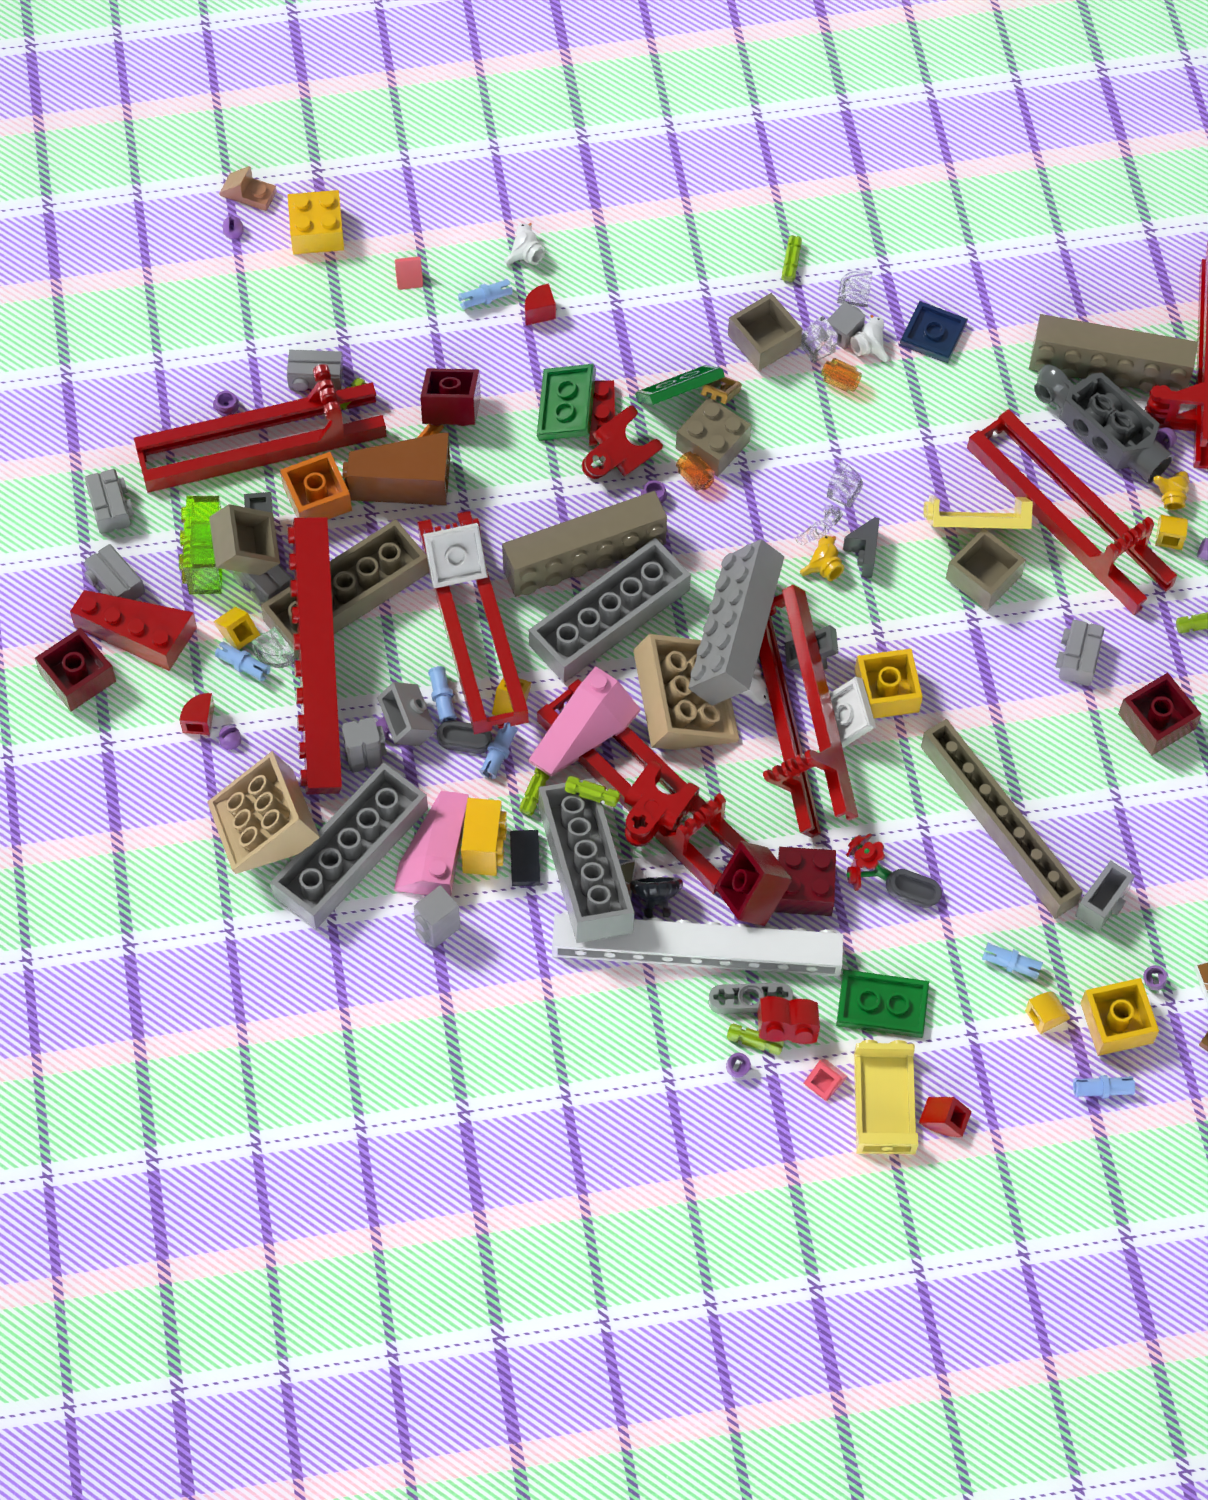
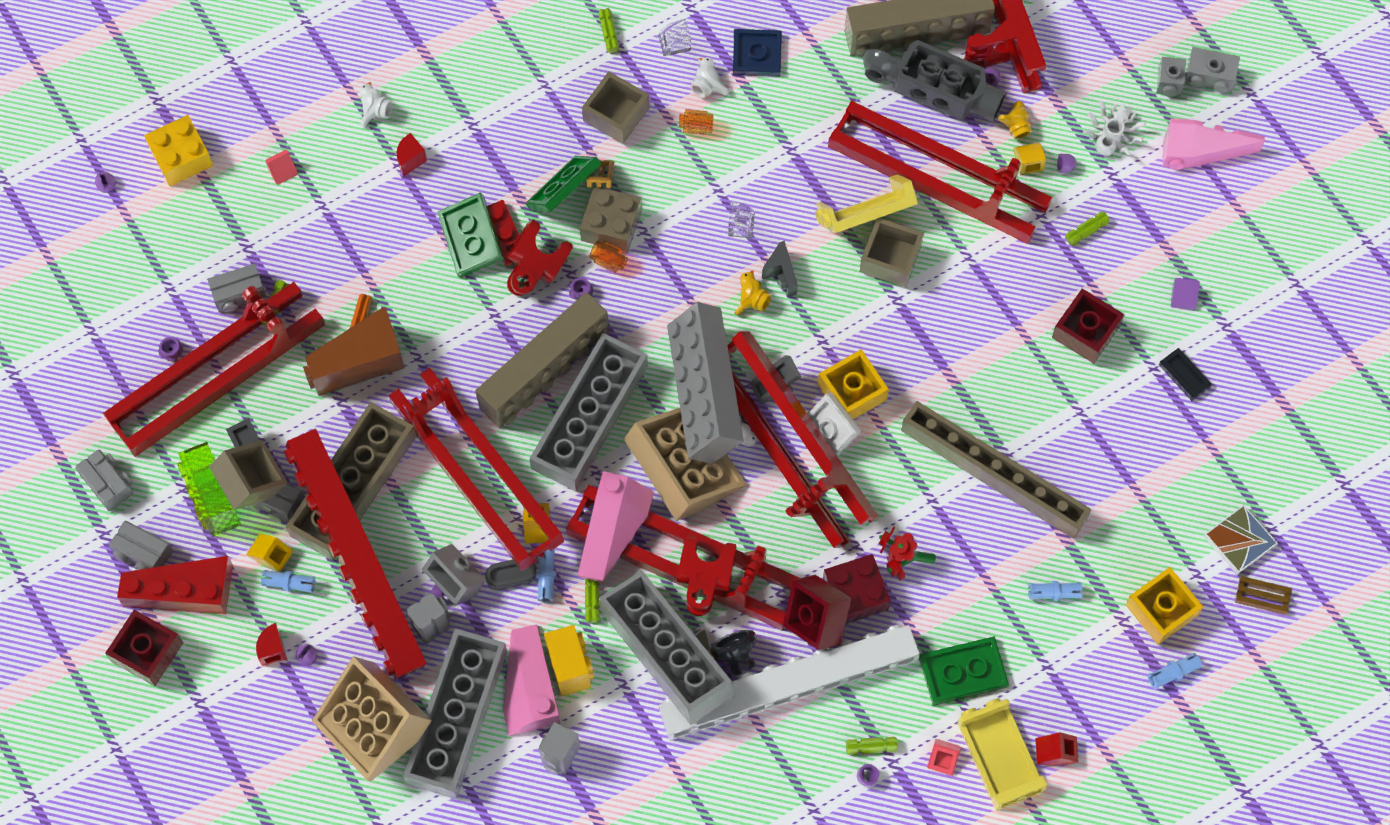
camera: 20 degrees left, 5 degrees up
(245, 189) = (102, 142): nougat slope -> none
(273, 649) = (311, 560): clear brick -> none
(316, 488) = (286, 400): orange brick -> none
(442, 694) = (476, 543): light blue pin -> none
(450, 396) = (369, 269): dark red brick -> none
(455, 555) = (439, 417): white tile -> none
(485, 294) = (356, 161): light blue pin -> none
(525, 858) = (609, 662): black tile -> none
(592, 791) = (647, 584): lime axle -> none
(757, 988) = (872, 709): light grey beam -> none
(788, 1020) = (894, 719): red brick -> none
(811, 533) = (732, 276): clear cap -> none
(819, 340) = (664, 97): clear brick -> none
(846, 322) = (680, 75): light grey brick -> none
(913, 888) = (948, 559): dark grey tile -> none
(1046, 1011) = (1101, 624): yellow brick -> none
(1081, 652) = (1000, 295): light grey brick -> none
(1105, 896) = (1109, 504): light grey brick -> none
(1148, 978) = (1182, 555): medium lavender hinge -> none

